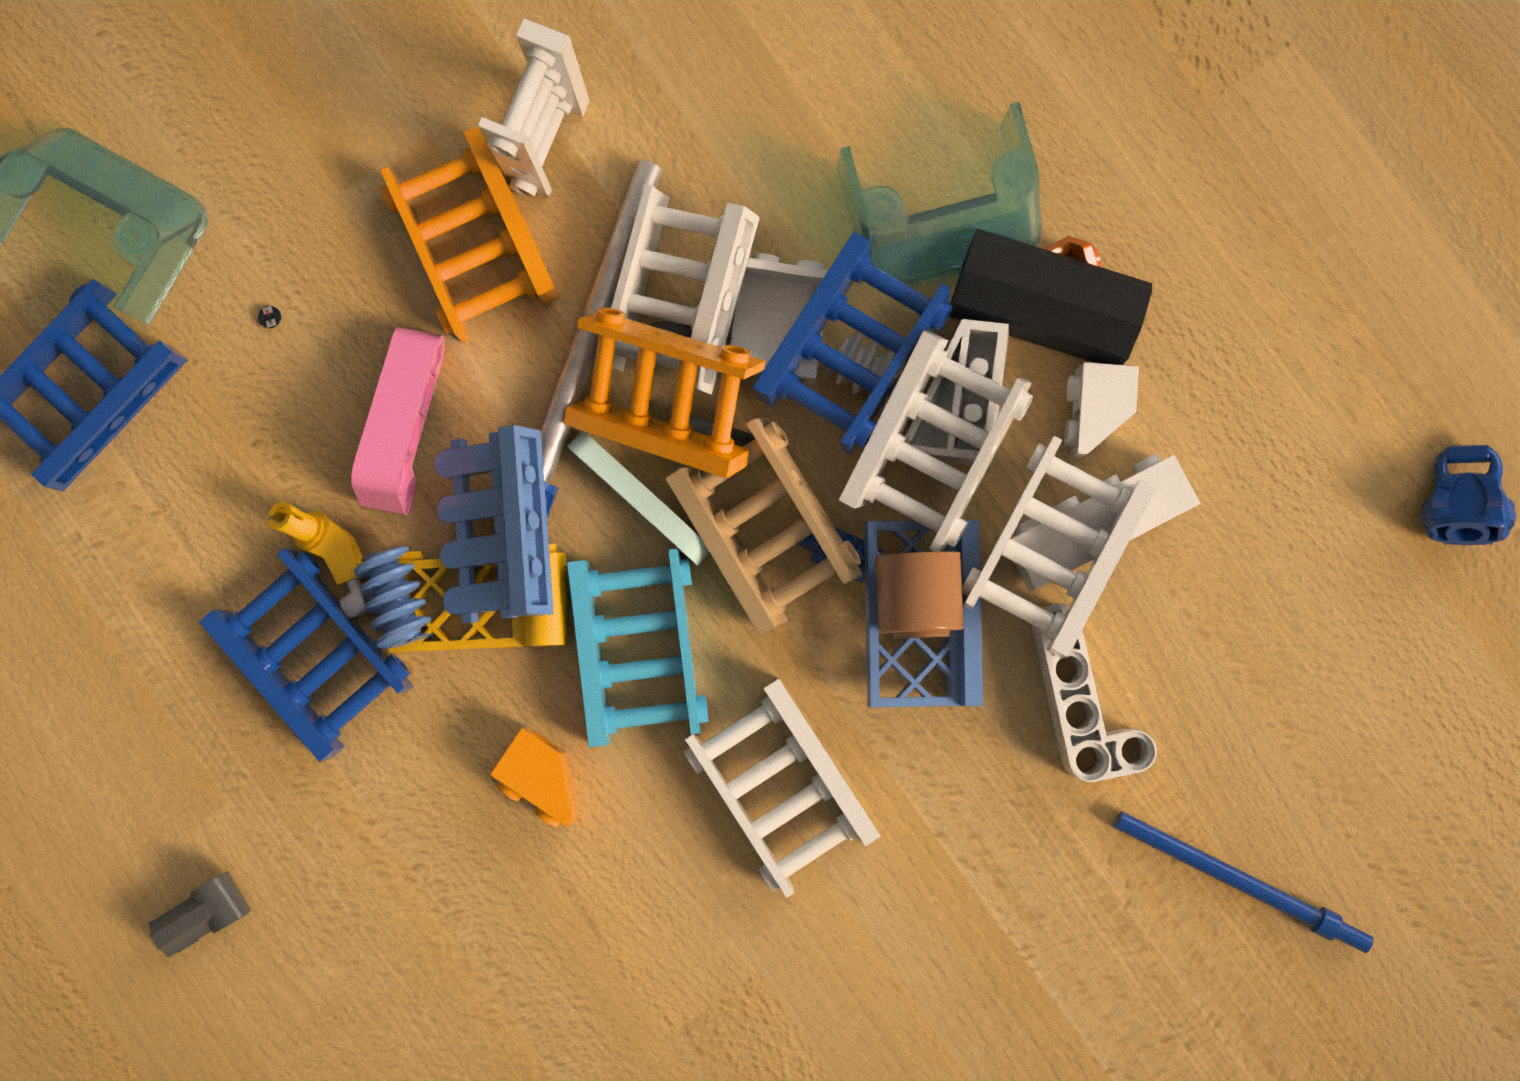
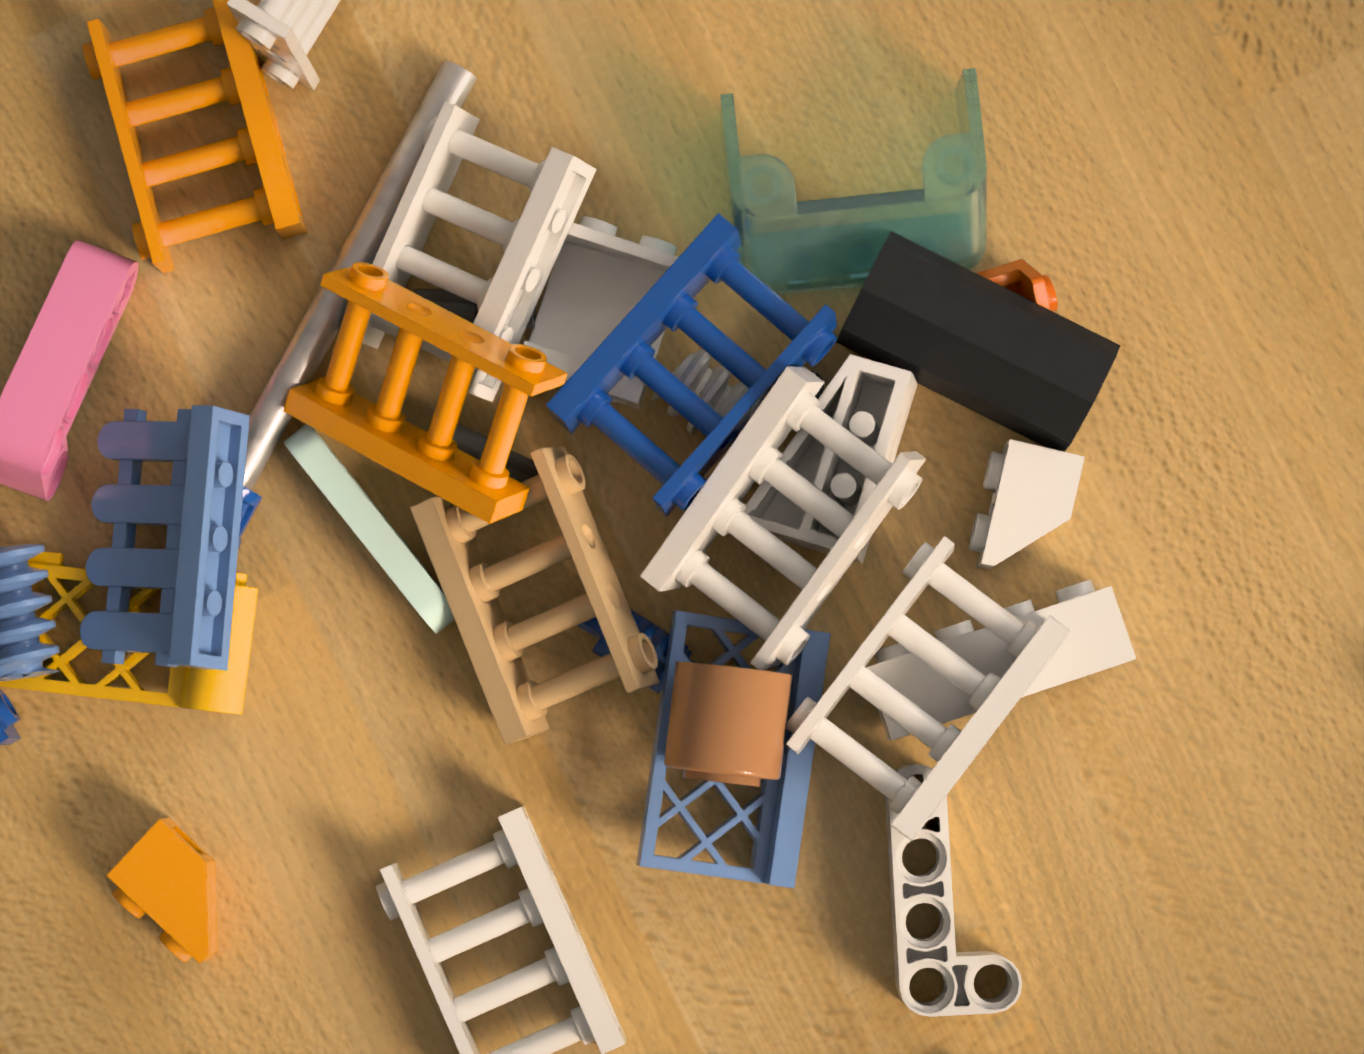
camera: 10 degrees right, 0 degrees up
(599, 674) = (279, 763): medium azure fence -> none

